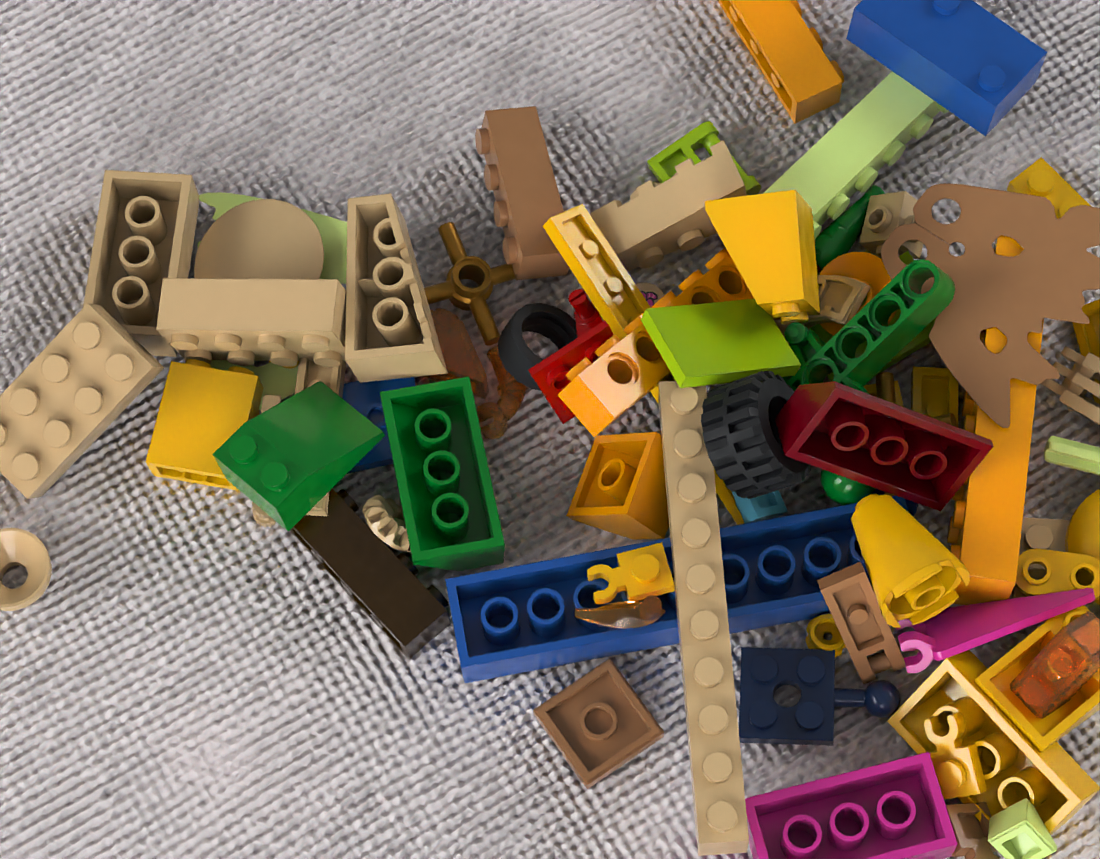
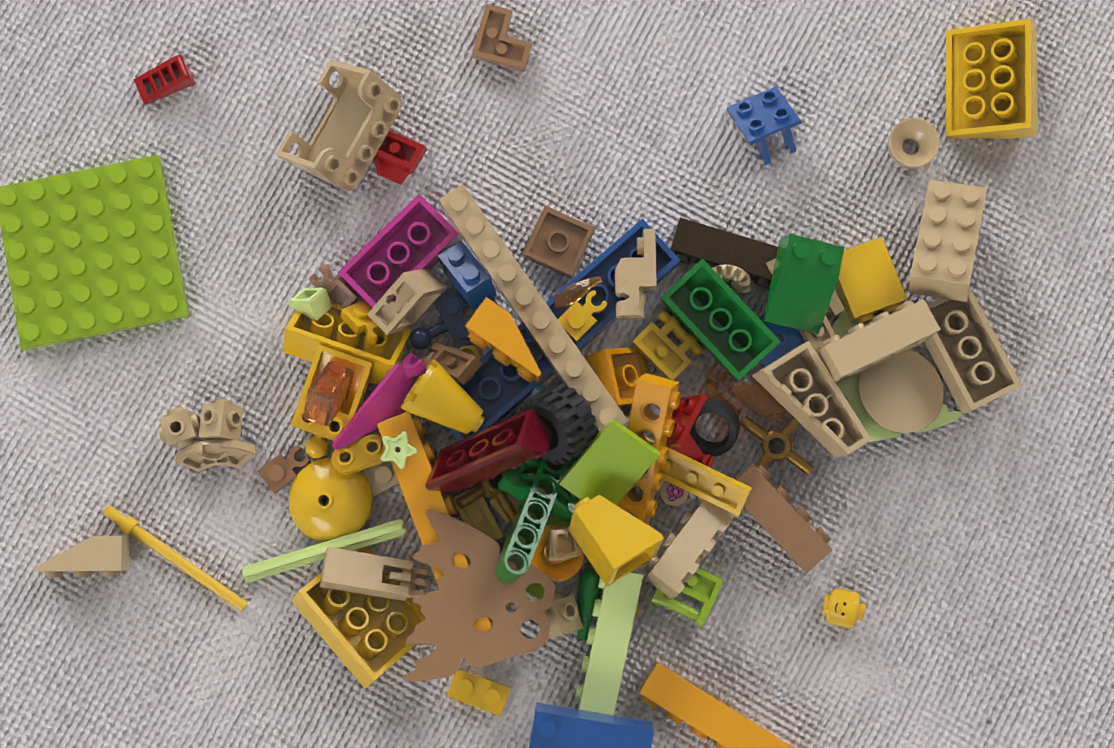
camera: 145 degrees right, 15 degrees up
(188, 728) = (764, 116): none -> blue plate
(514, 50) = (843, 608): none -> yellow head
(523, 580) = (636, 276): none -> tan plate
(546, 487) = (662, 351): none -> yellow plate
(764, 737) = (466, 274): none -> blue brick
(773, 608) = (497, 330): none -> light orange slope
(875, 733) = (414, 296): none -> tan window
(1004, 537) = (400, 457): none -> yellowish green plate

